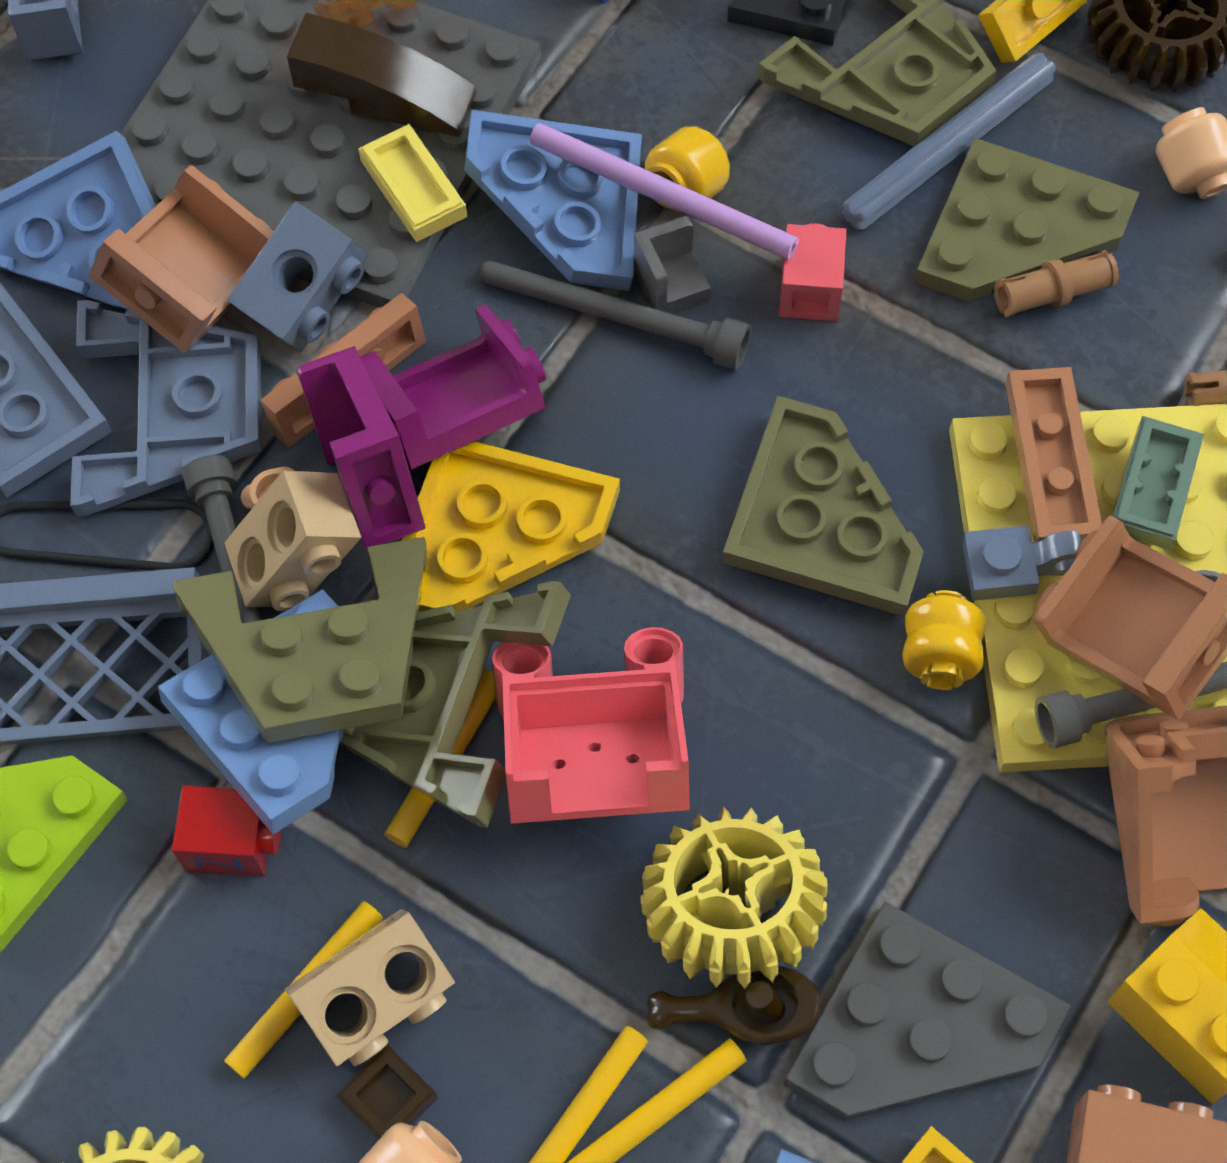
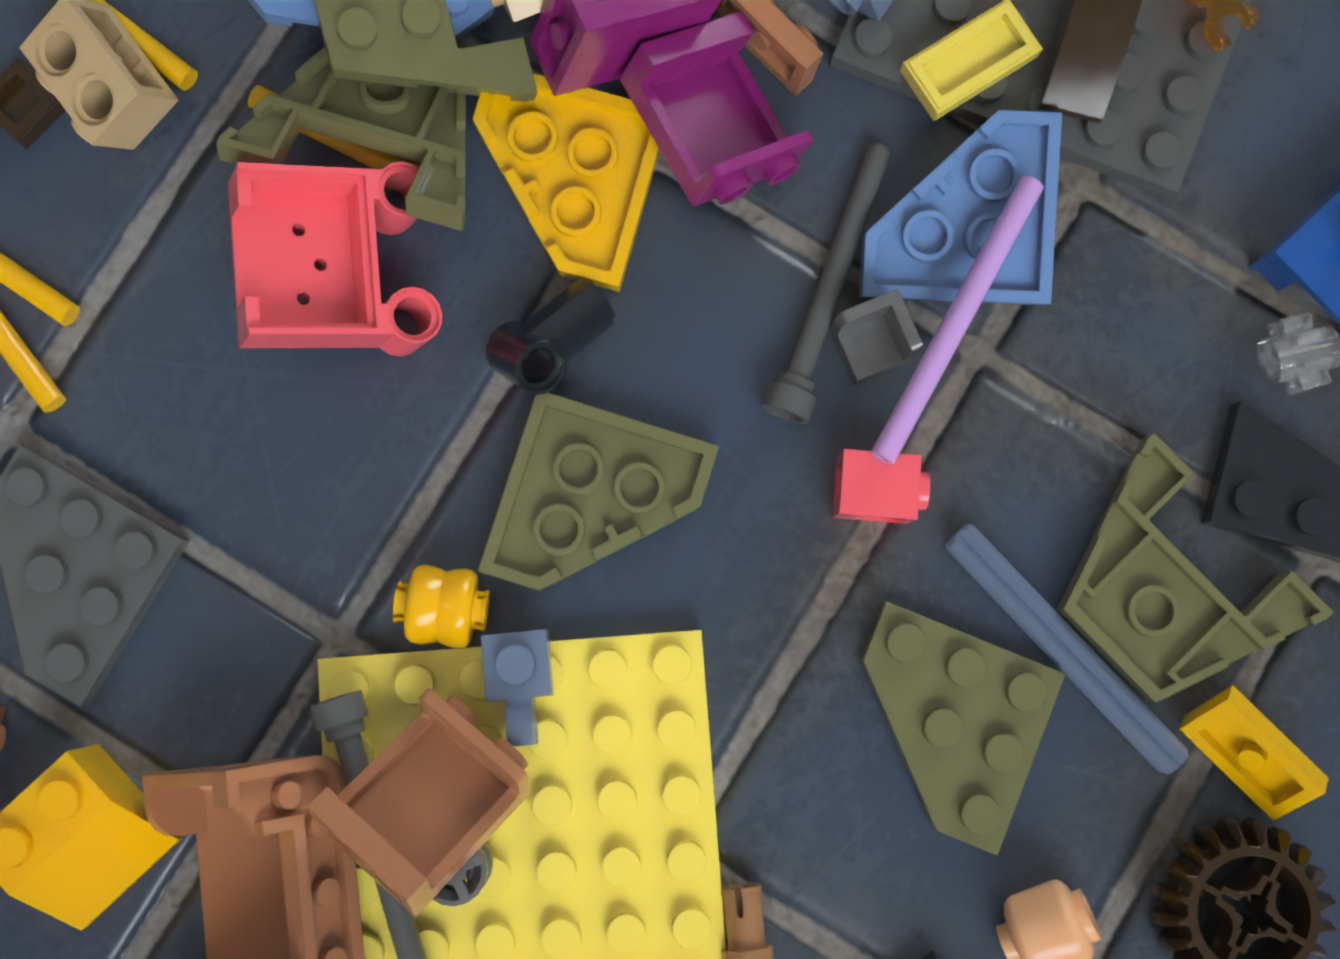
camera: 85 degrees right, 20 degrees up
(681, 547) = (549, 337): none -> black piece
(691, 160) = (1006, 353): yellow head -> none
(715, 927) = (143, 405): light yellow gear -> none
(758, 1014) = (84, 418): dark brown piece -> none
(1052, 452) = (634, 727): nougat plate -> none
(1056, 283) = (873, 753): medium nougat pin -> none
(1157, 481) = (606, 834): sand green plate -> none

